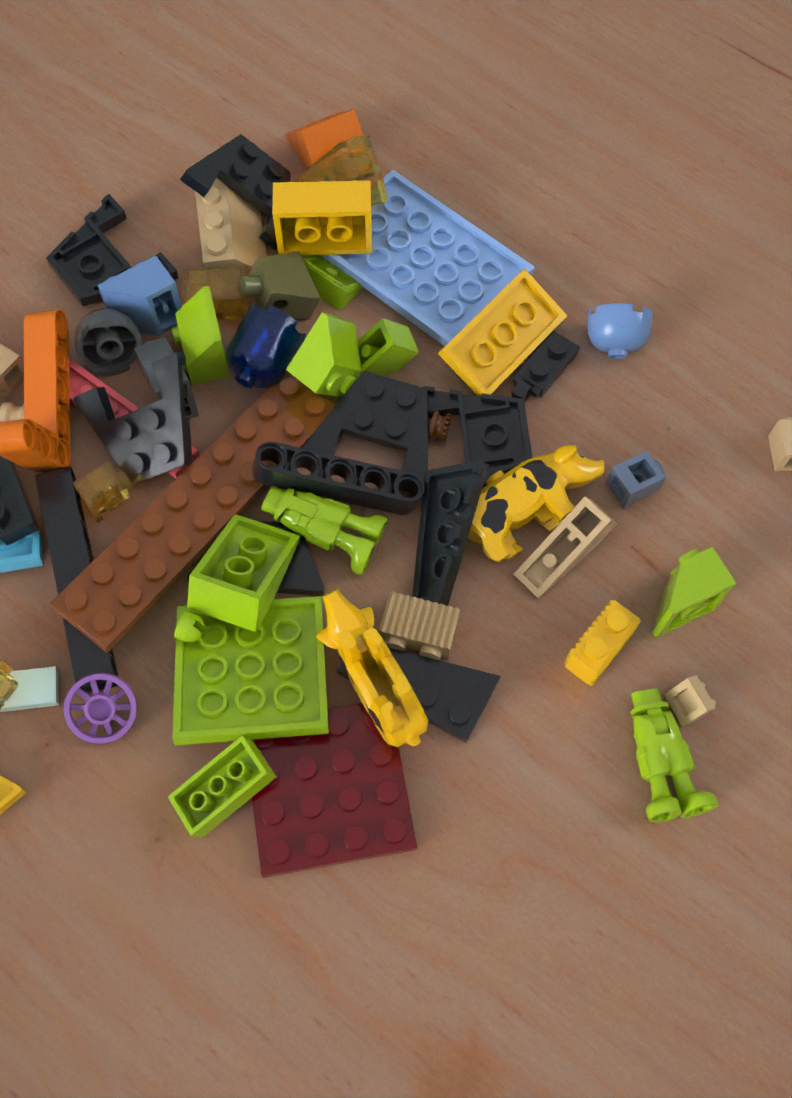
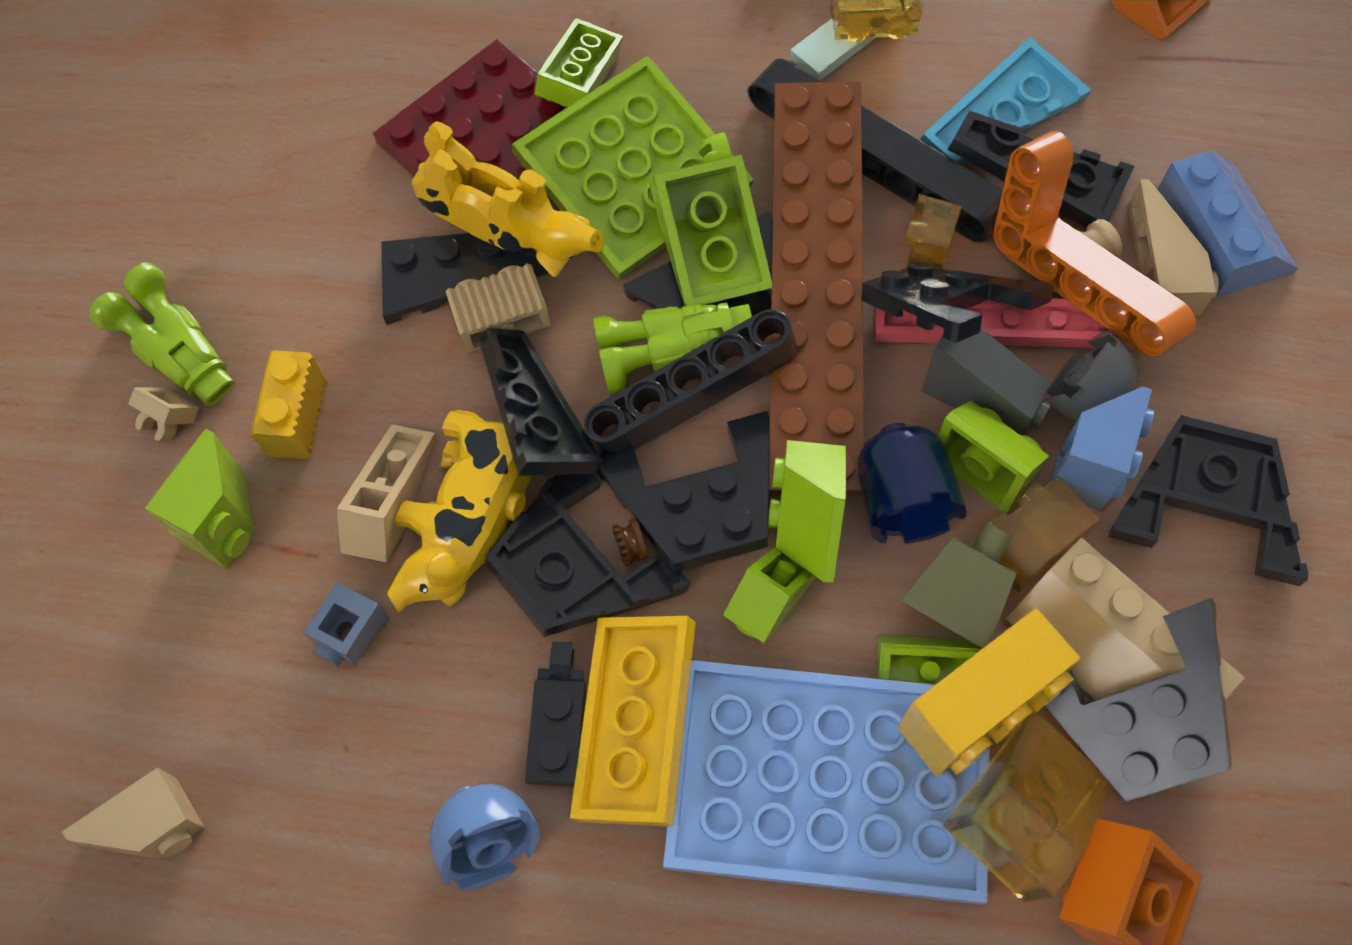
camera: 150 degrees right, 0 degrees up
(100, 708) = (743, 61): medium lavender wheel -> none

